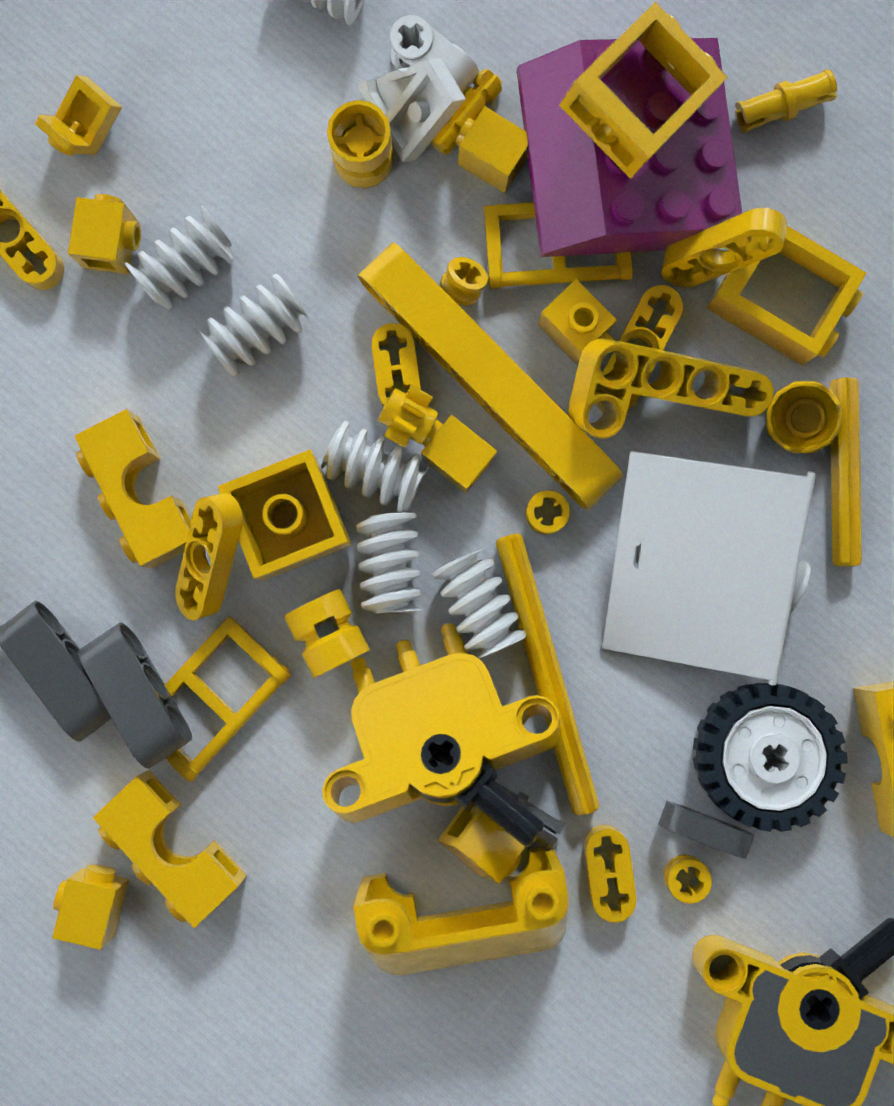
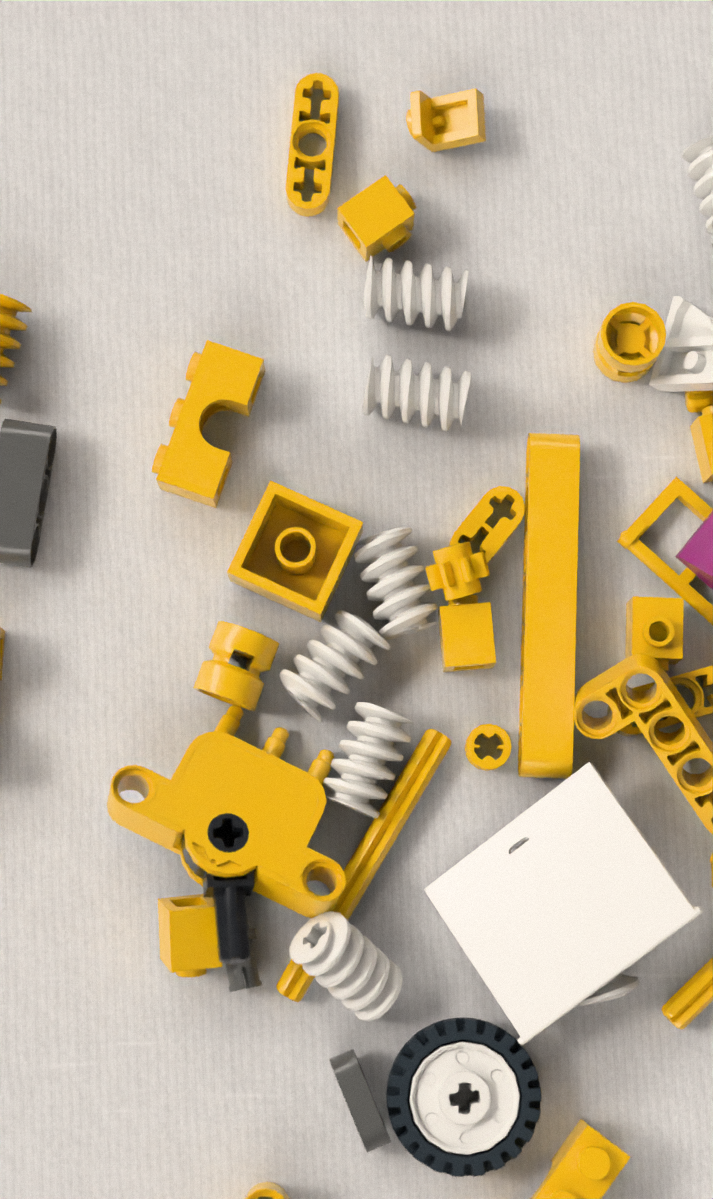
camera: 45 degrees right, 5 degrees down
(134, 695) = (55, 567): dark grey beam -> none
(216, 528) = (238, 510): yellow beam -> none
(279, 674) = (103, 591): yellow window -> none
(414, 944) = (55, 952): yellow windscreen -> none
(464, 280) = (614, 514): yellow bush -> none
(608, 753) = (347, 965): none -> white piece
(621, 872) = (246, 1050): yellow beam -> none
(691, 895) = (322, 1131): yellow bush -> none

